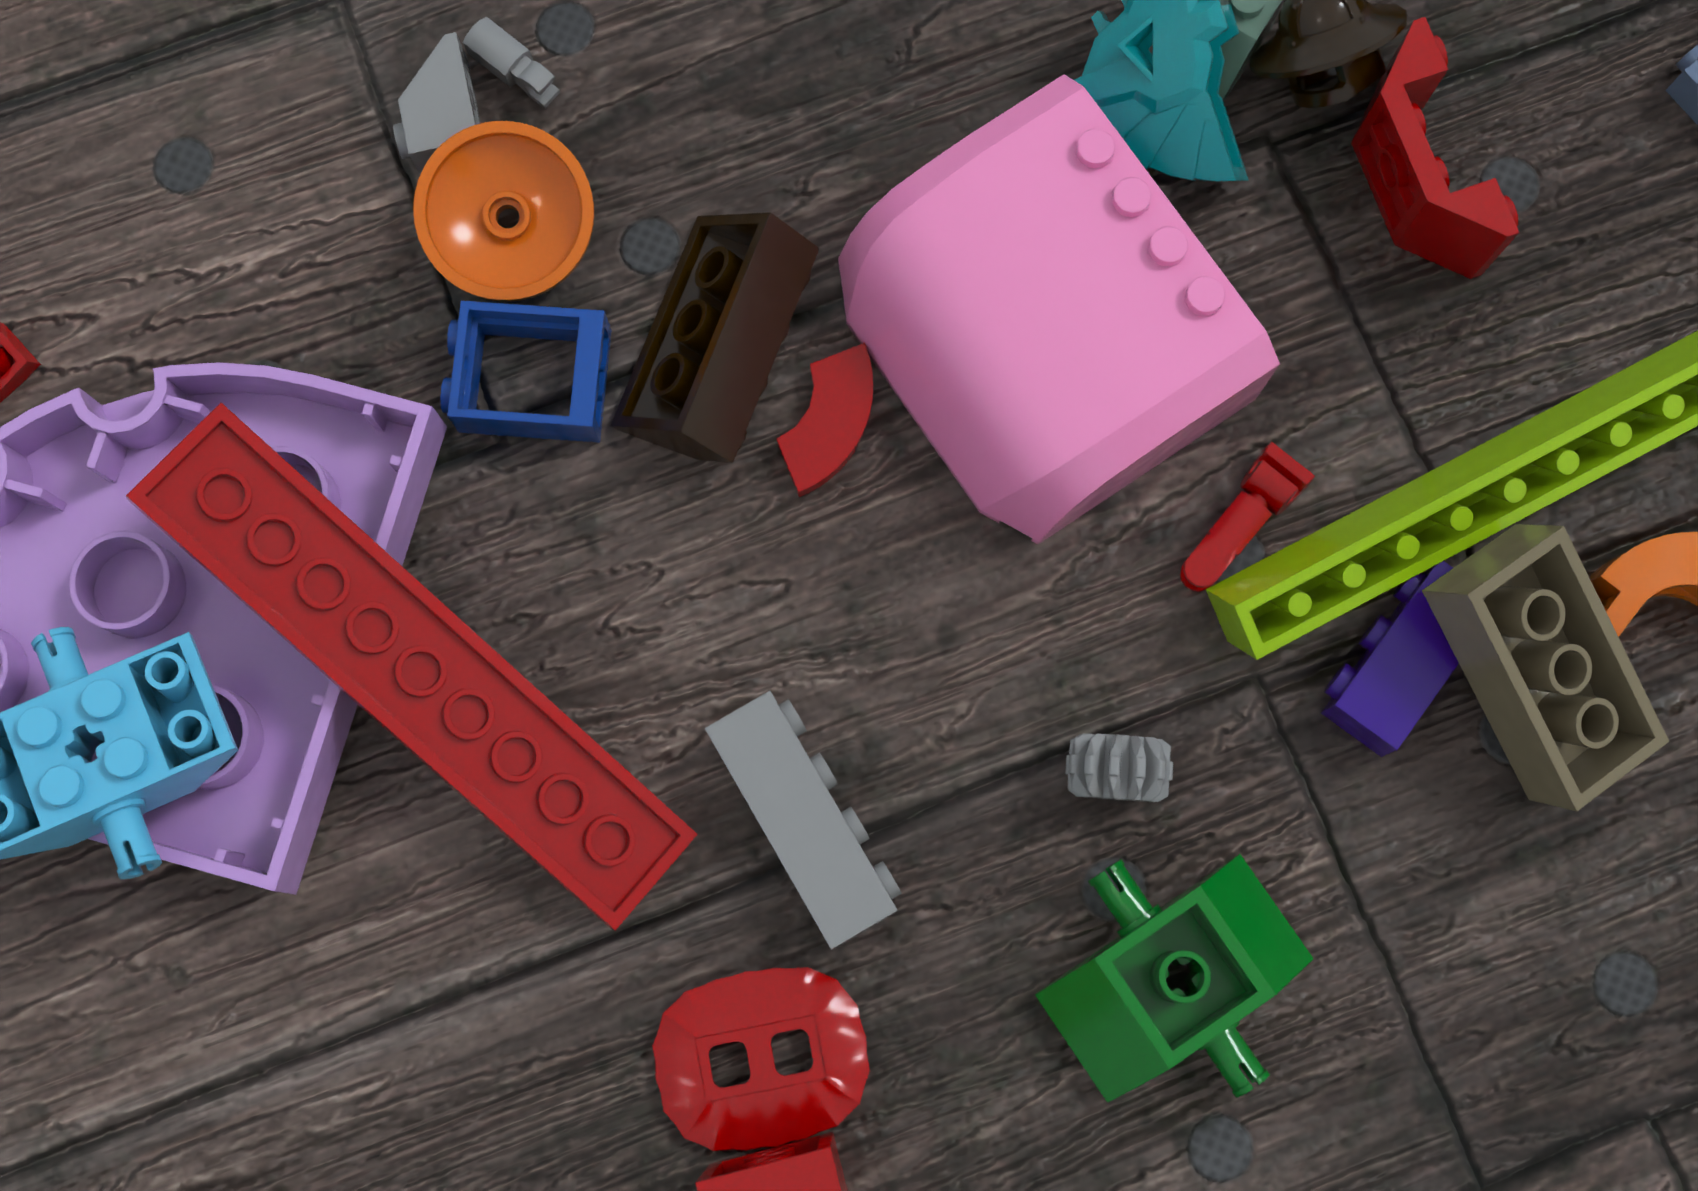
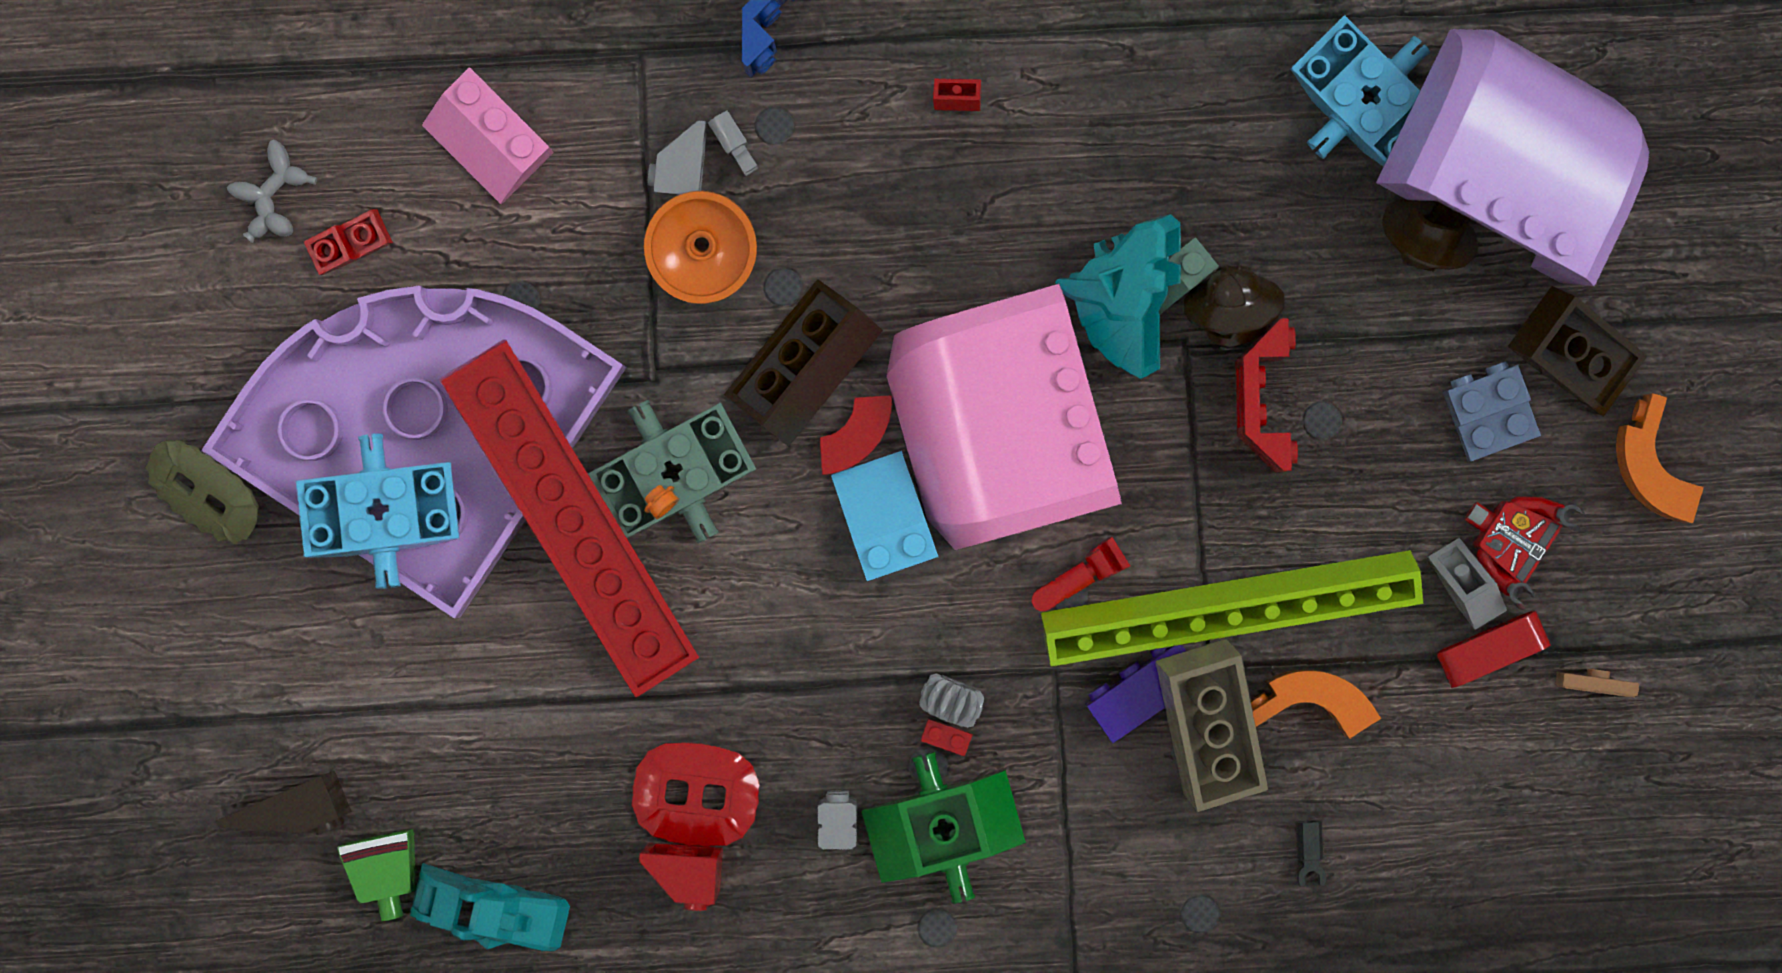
camera: 20 degrees right, 10 degrees up
(137, 160) = (486, 136): none -> bright pink slope
(466, 344) = (652, 319): blue window -> none
(556, 595) = (660, 501): none -> orange plate
(615, 520) = (710, 462): none -> sand green slope
(802, 820) = (761, 670): light grey brick -> none
(917, 525) = (884, 516): none -> medium azure slope
(1006, 1021) = (837, 820): none -> light grey brick
(1128, 832) = (946, 737): none -> red piece

